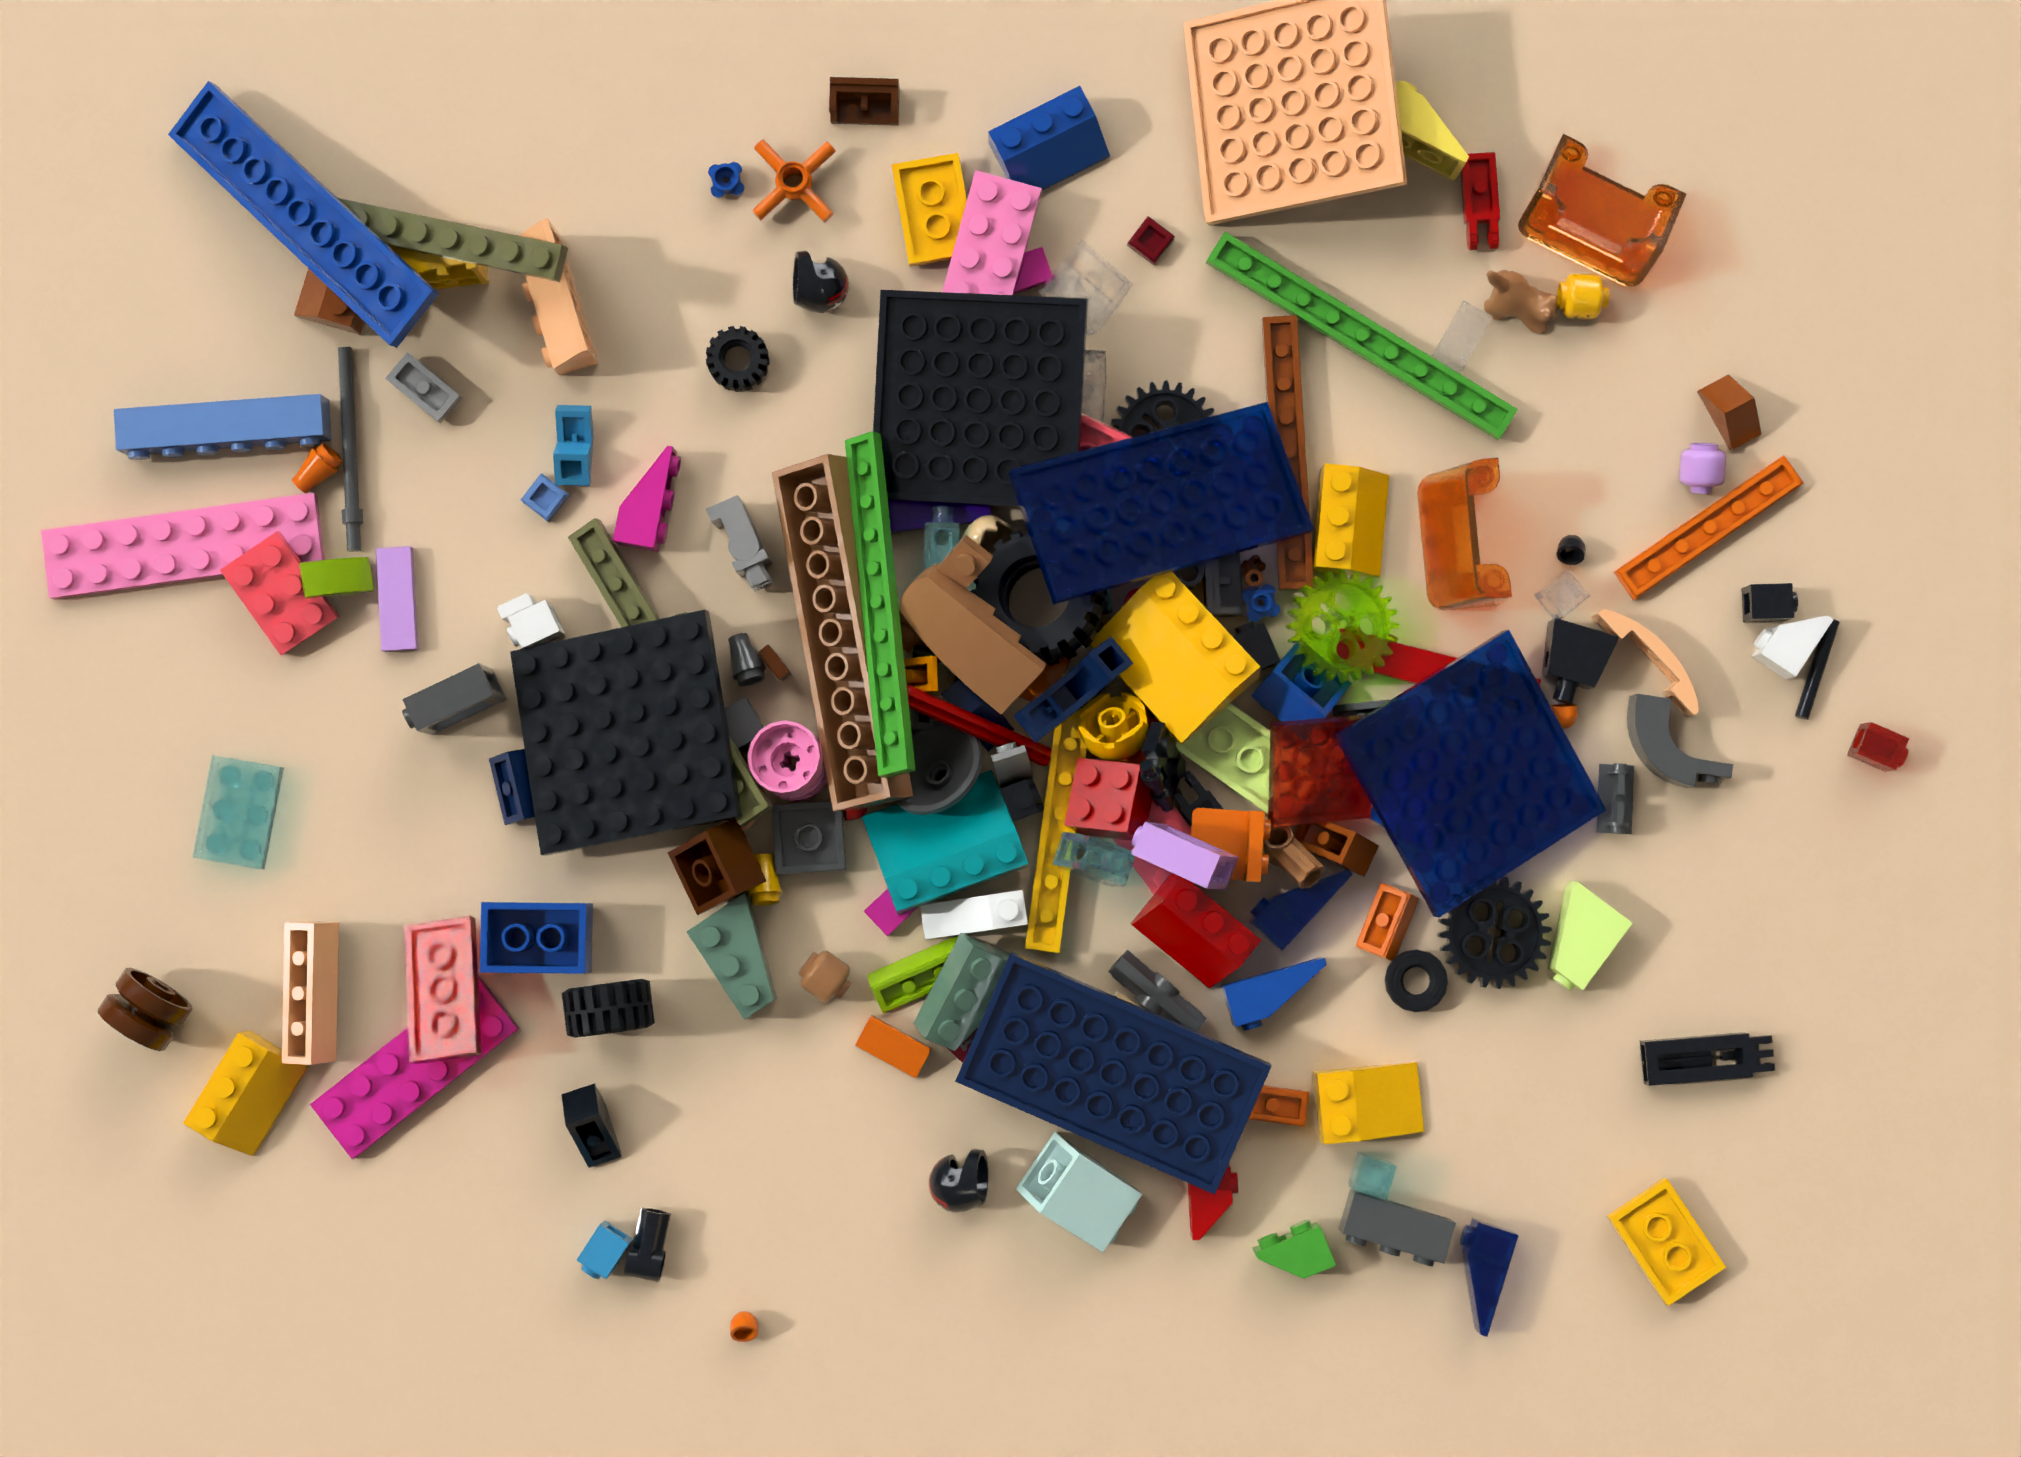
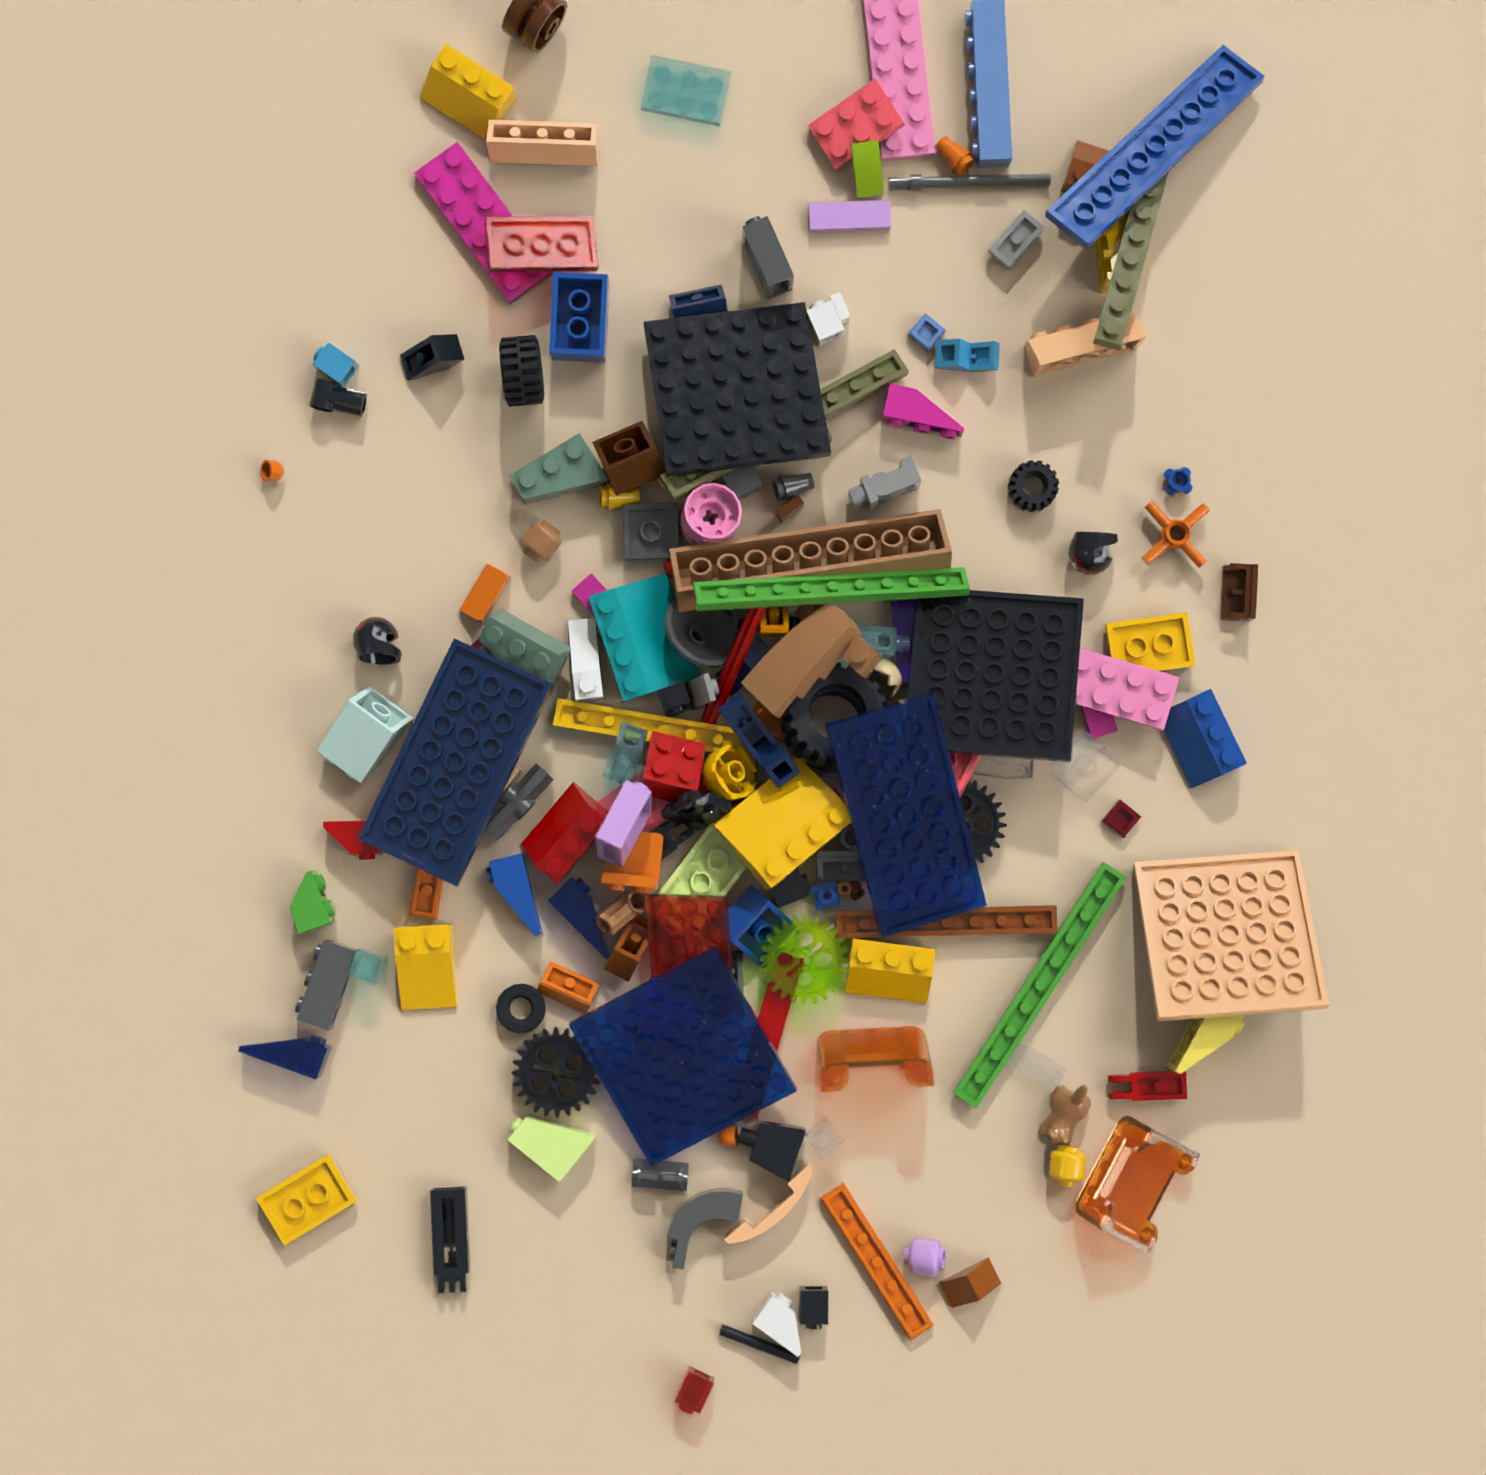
camera: 85 degrees right, 0 degrees up
(910, 976) = (538, 607): lime slope -> none
(1571, 550) = (861, 1147): black hinge -> none

